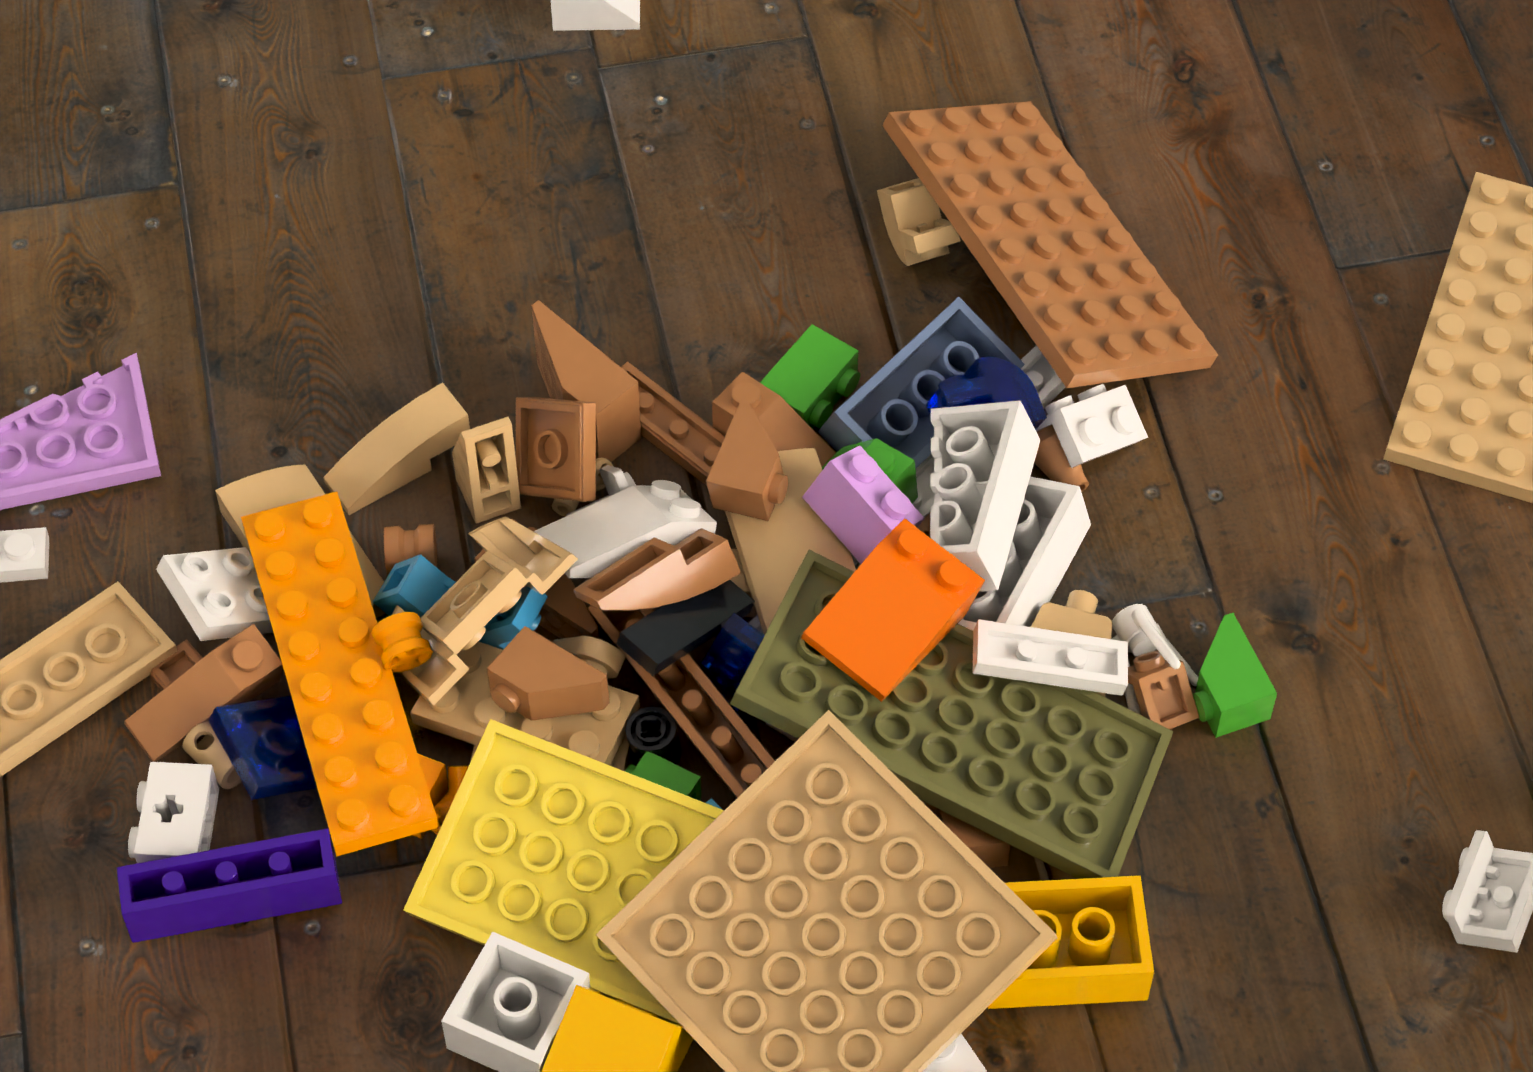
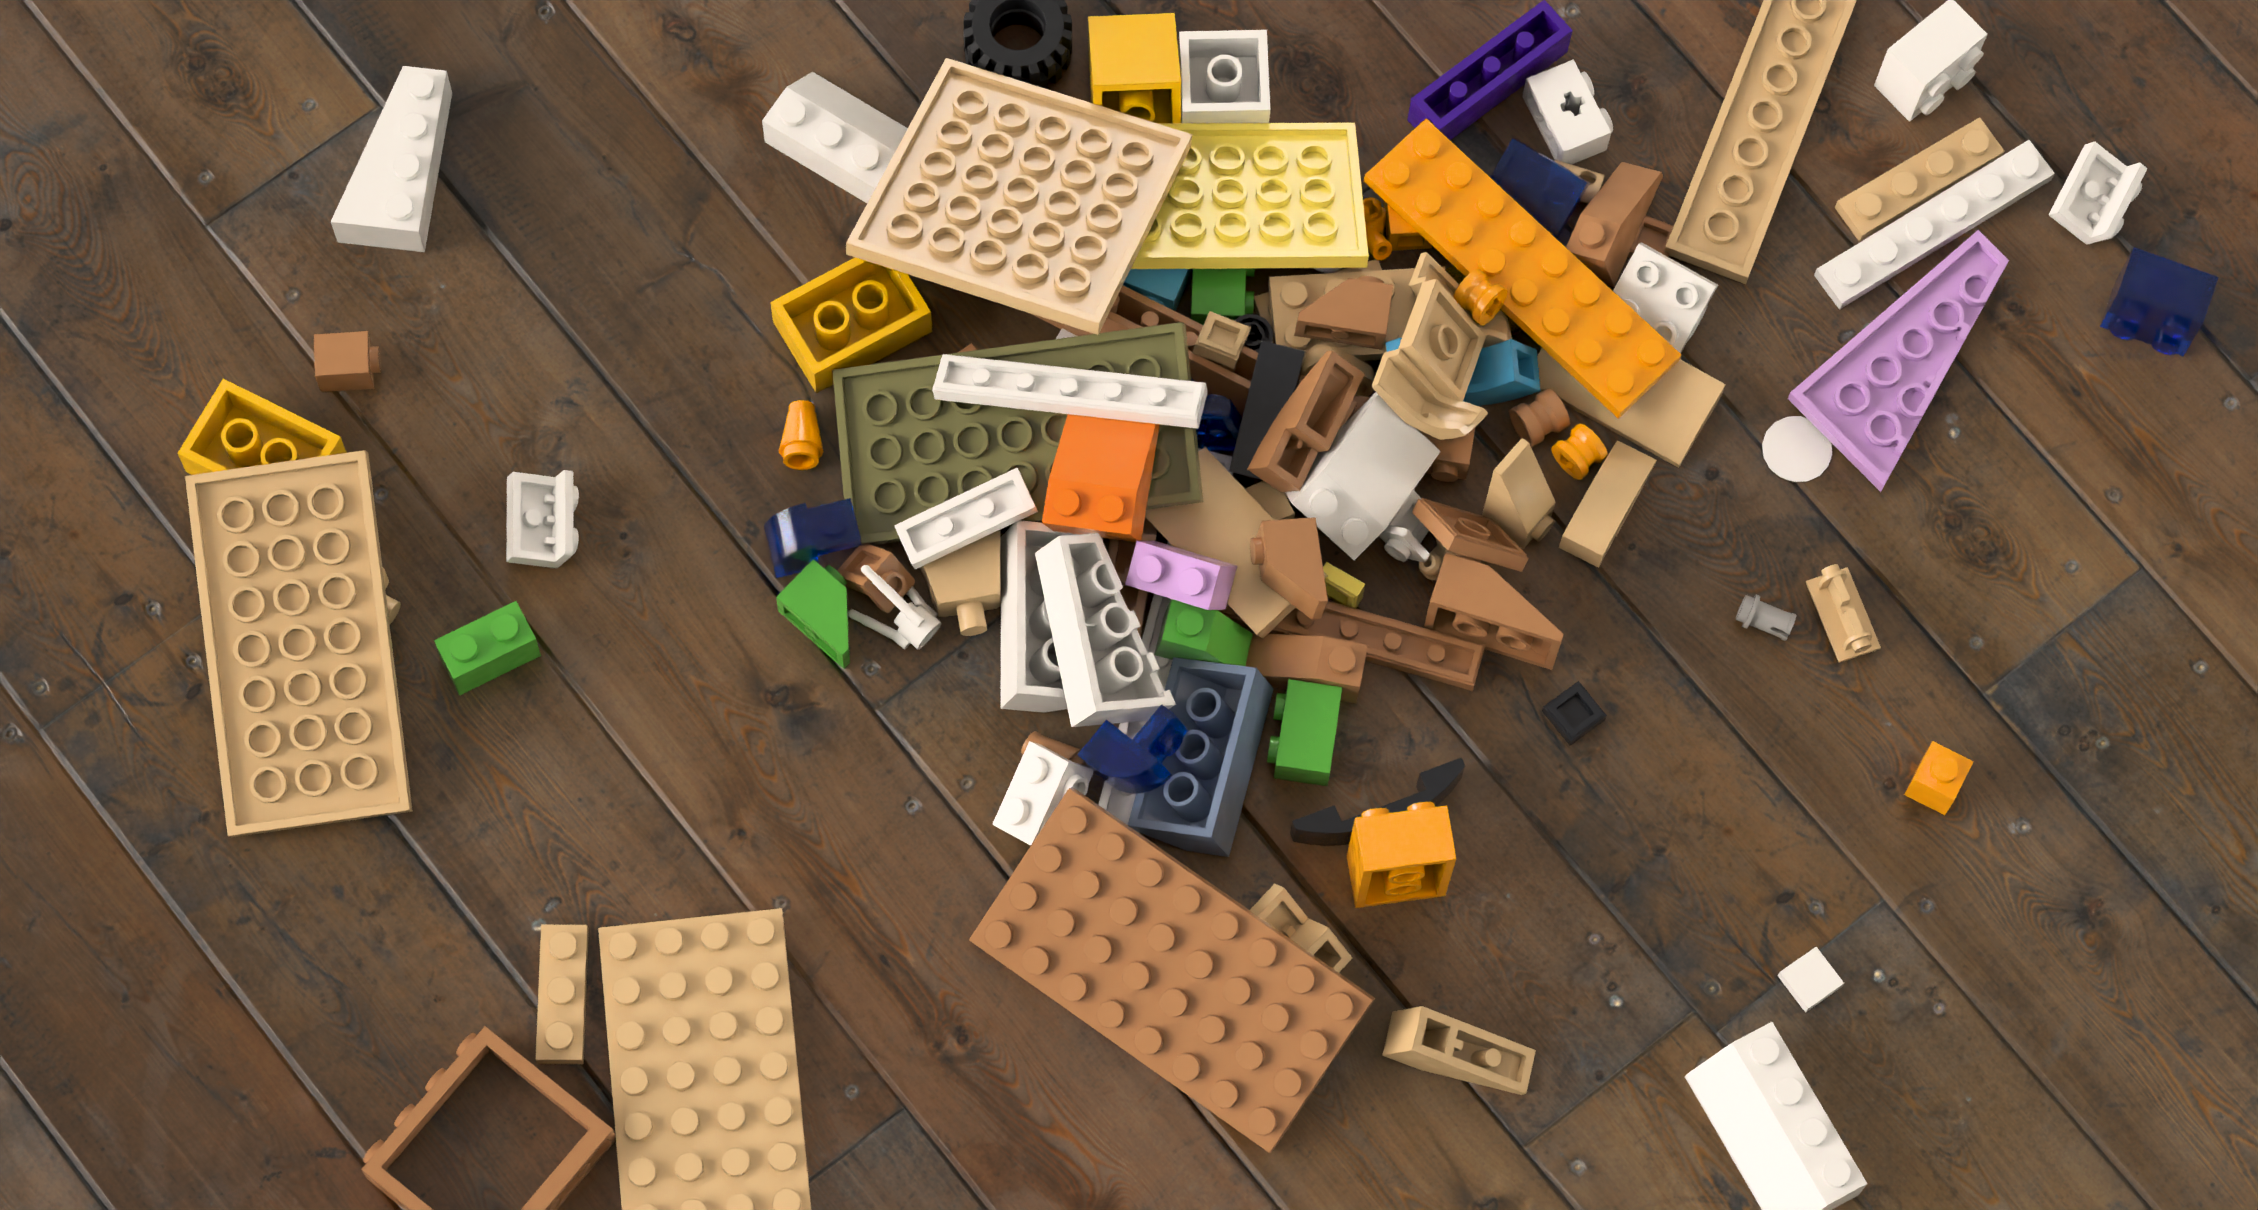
camera: 150 degrees right, 15 degrees up
(186, 436) = (1796, 449): none -> white sticker
(252, 278) = (1842, 613): none -> tan hinge
(271, 119) = (1938, 778): none -> light orange brick
(330, 311) = (1765, 617): none -> light grey pin
(394, 503) = (1579, 451): none -> light orange wheel
(487, 43) = (1810, 979): none -> white tile
(555, 298) = (1574, 713): none -> black tile
(690, 715) = (1221, 340): none -> tan tile
(693, 482) = (1343, 587): none -> light yellow tile
(777, 287) = (1327, 829): none -> black slope
(792, 216) = (1401, 855): none -> light orange brick
(830, 102) = (1457, 1050): none -> tan slope
(888, 695) = (1070, 391): none -> white tile
(1172, 860) = (801, 437): none -> light orange cone
(1222, 740) = (805, 533): none -> clear blue brick

